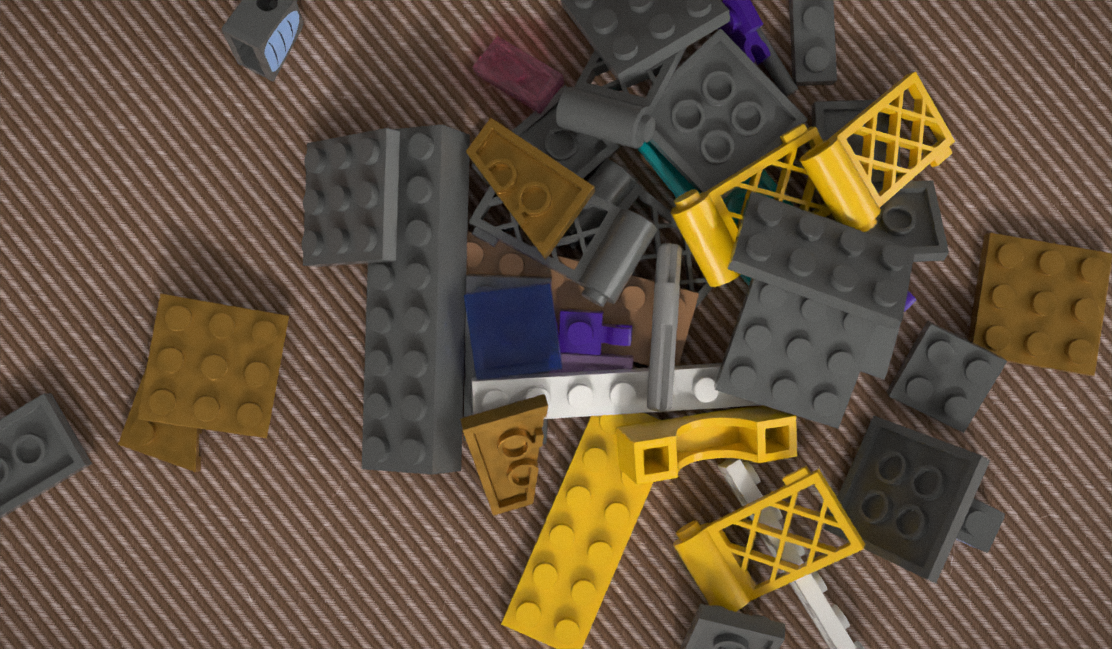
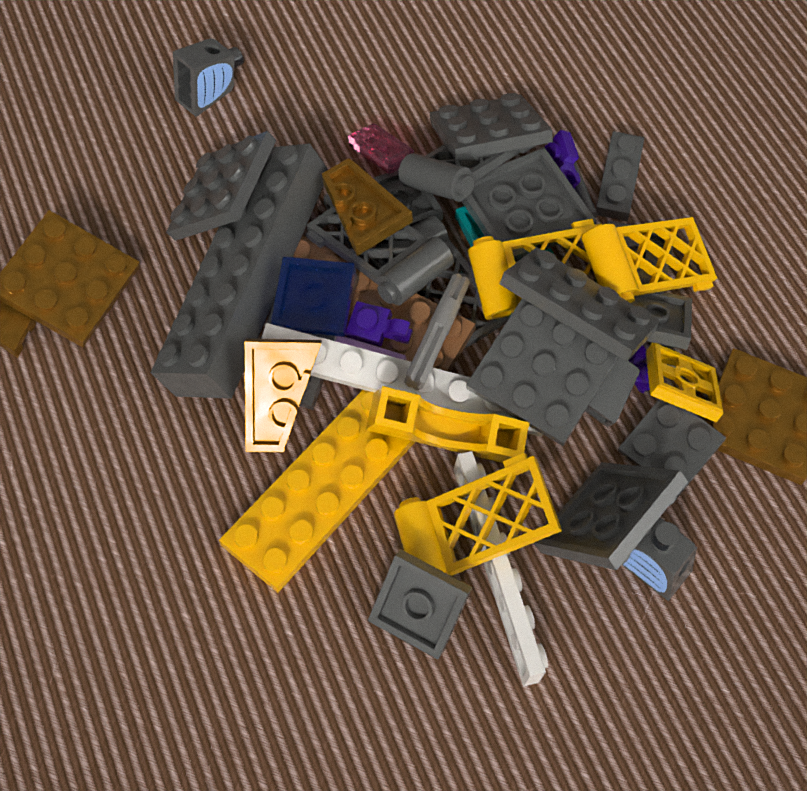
camera: 10 degrees right, 25 degrees down
(973, 299) = (701, 378): none -> yellow piece

